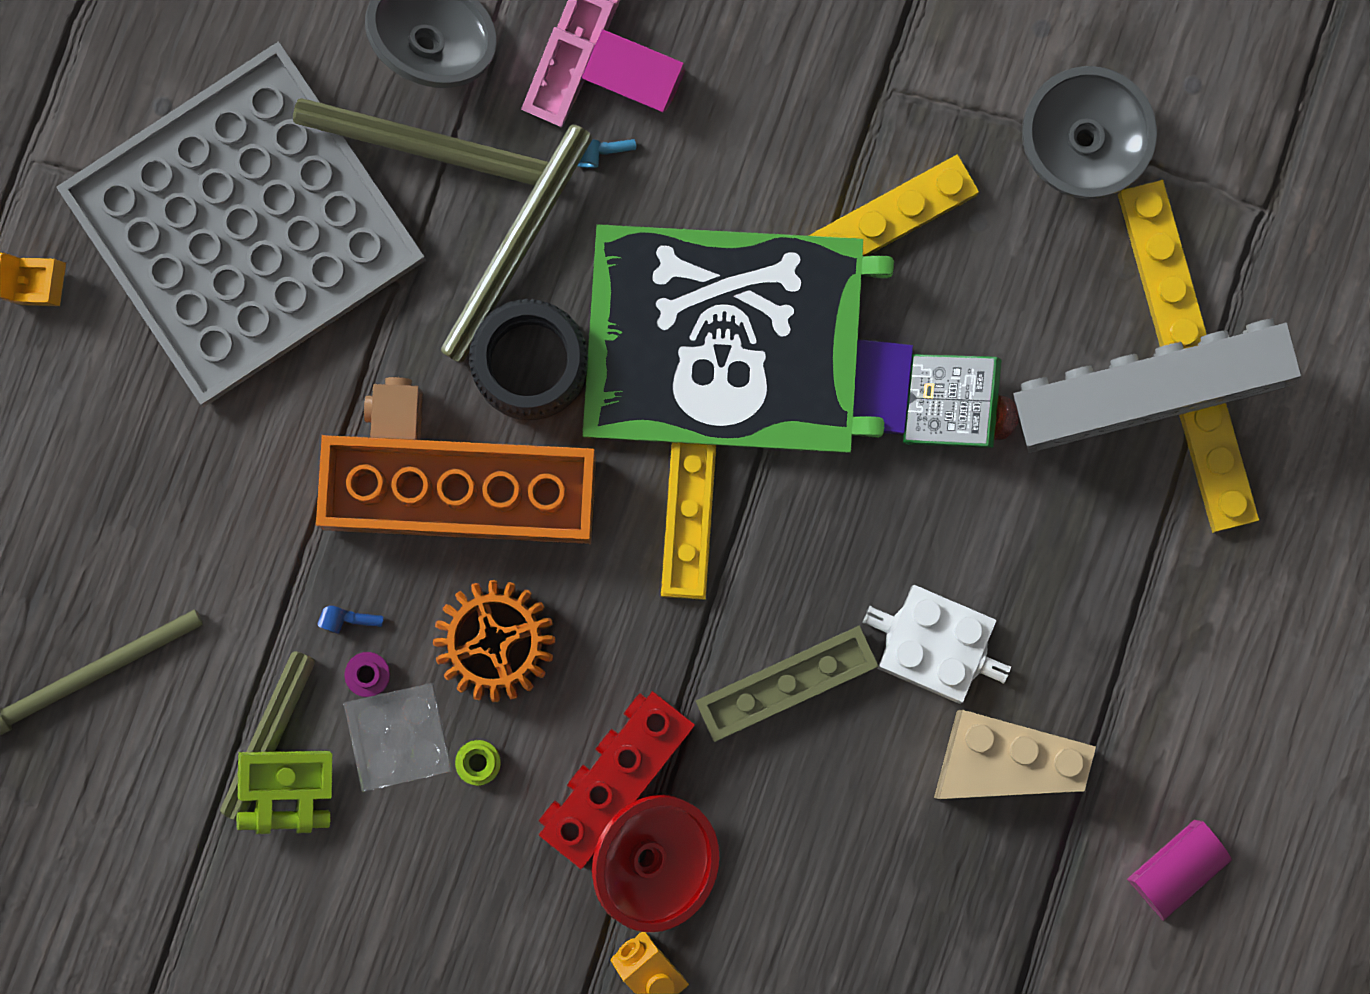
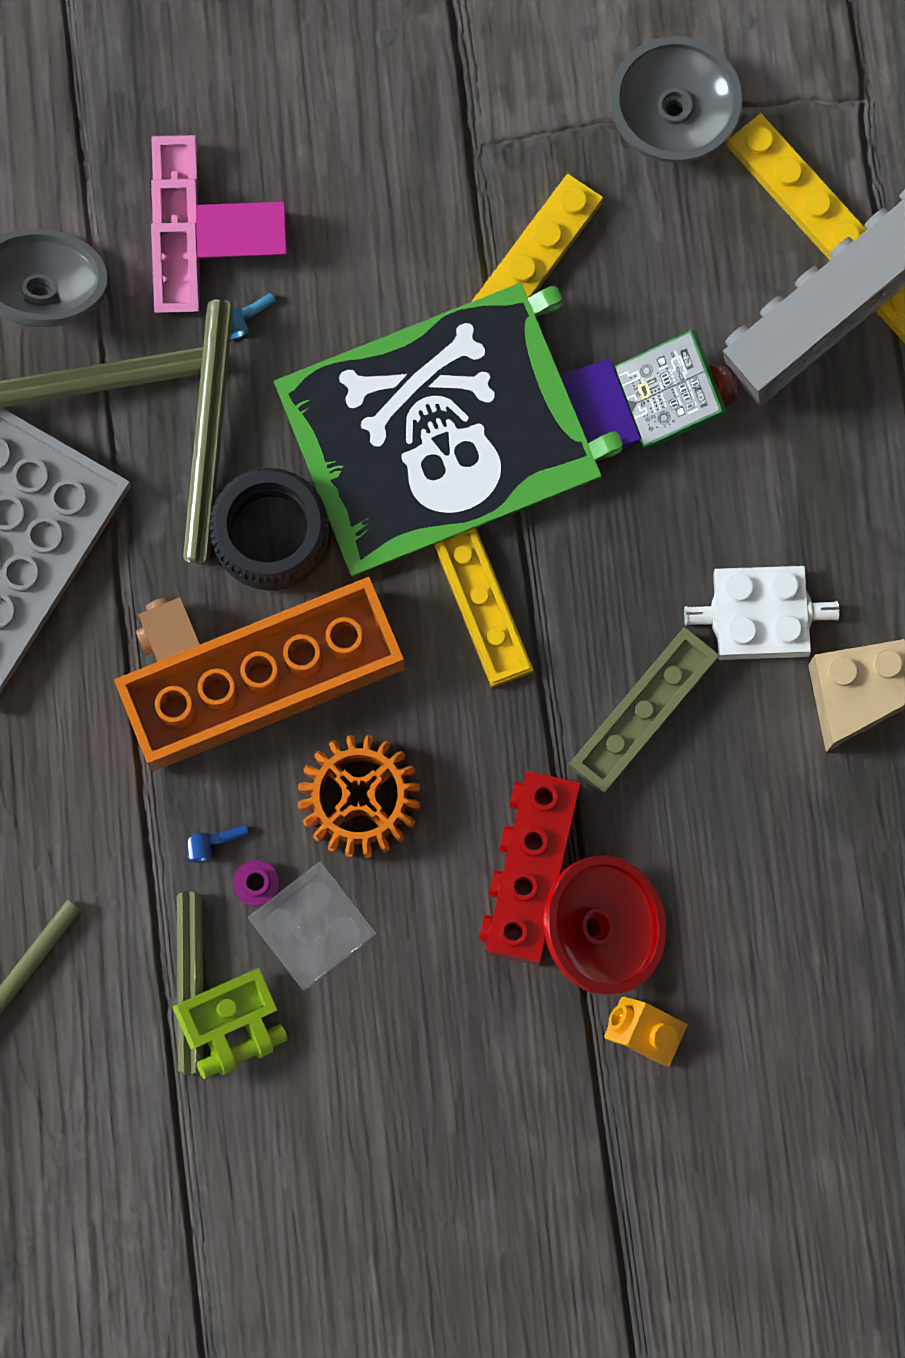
camera: 25 degrees left, 5 degrees down
(464, 768) = (391, 901): lime plate -> none

